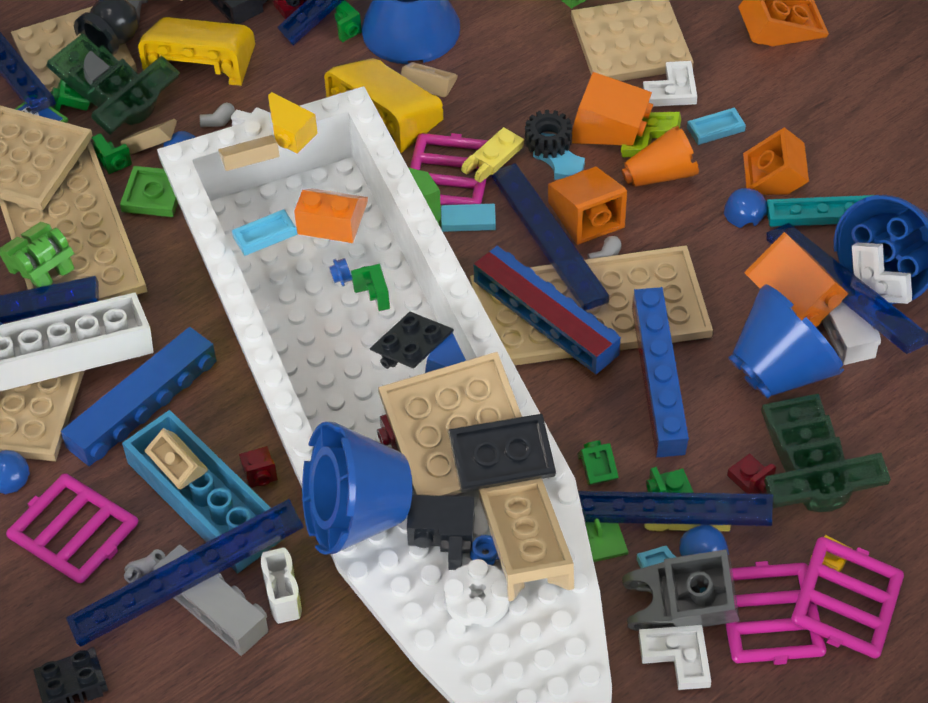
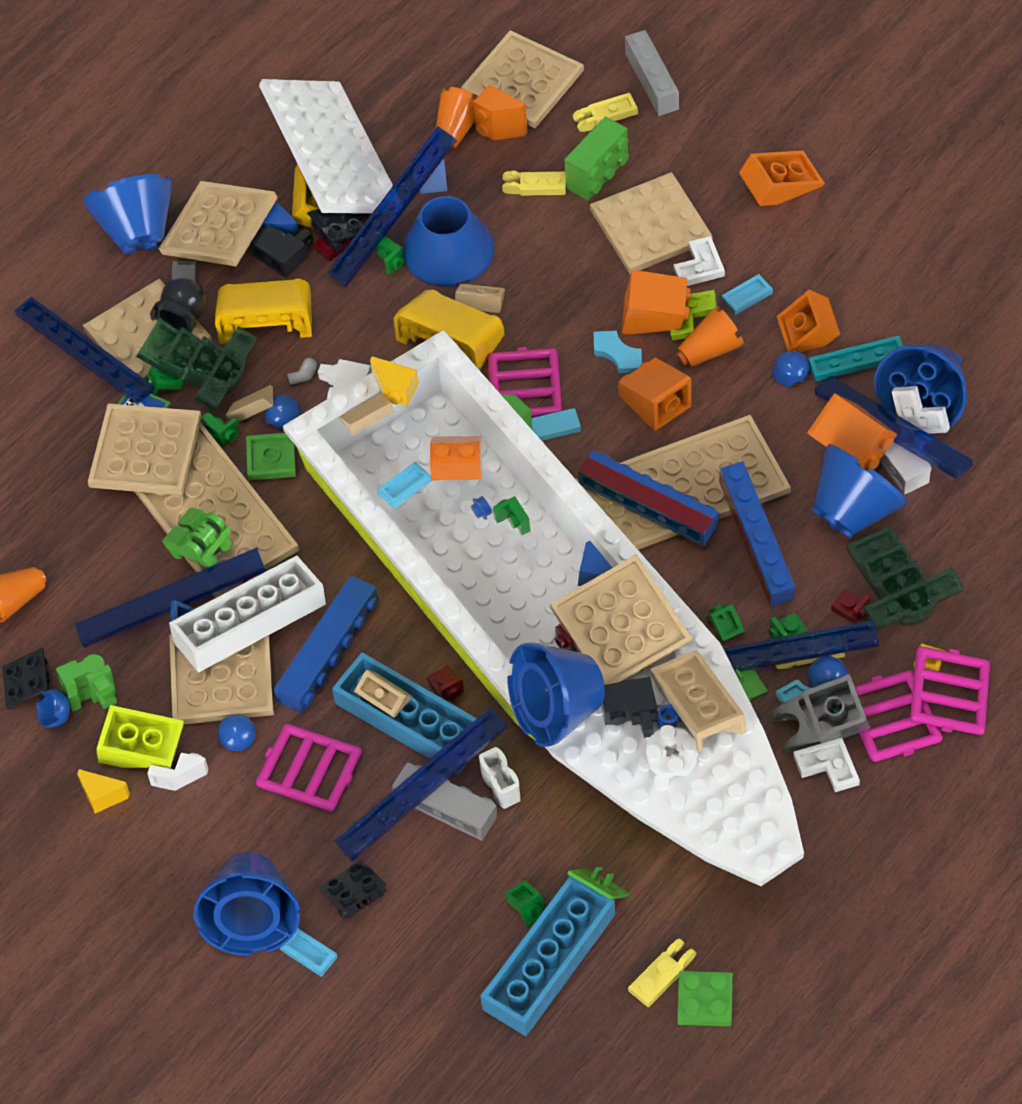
camera: 10 degrees left, 5 degrees up
(94, 67) = (182, 351): dark grey tile -> none
(142, 567) = (380, 786): light grey arm -> none
(410, 341) = (560, 557): black hinge -> none
(493, 154) = (562, 361): light yellow hinge -> none
(501, 452) = (661, 636): black tile -> none
(548, 144) = (604, 322): black tyre -> none
(551, 238) = (631, 429): clear blue tile -> none
(610, 248) = (686, 430): light grey arm -> none

